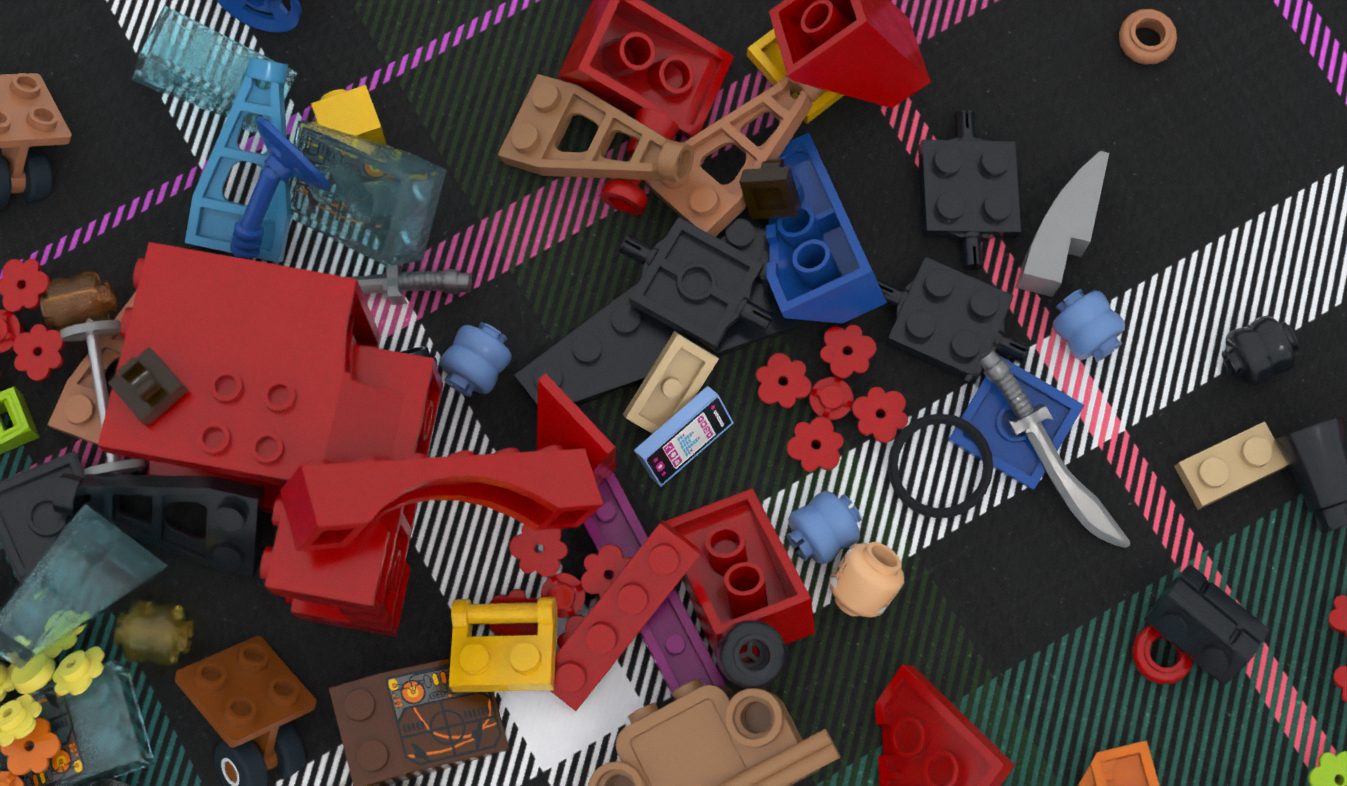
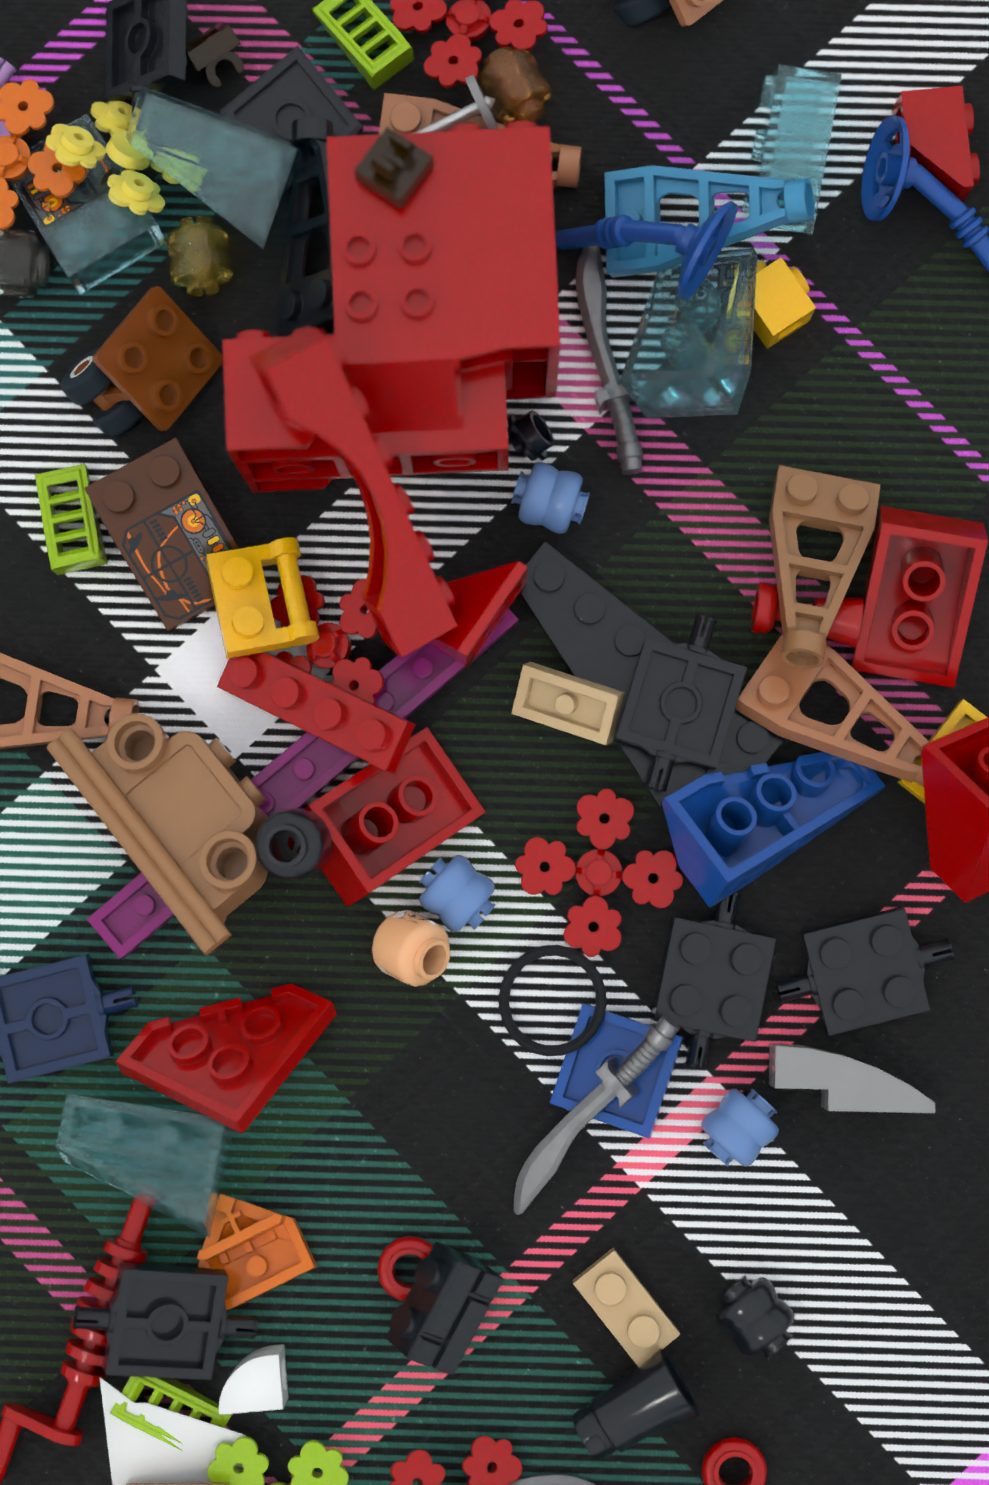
camera: 85 degrees right, 10 degrees up
(684, 436) = (519, 729): tile -> none
(770, 191) = (801, 757): dark brown tile -> none

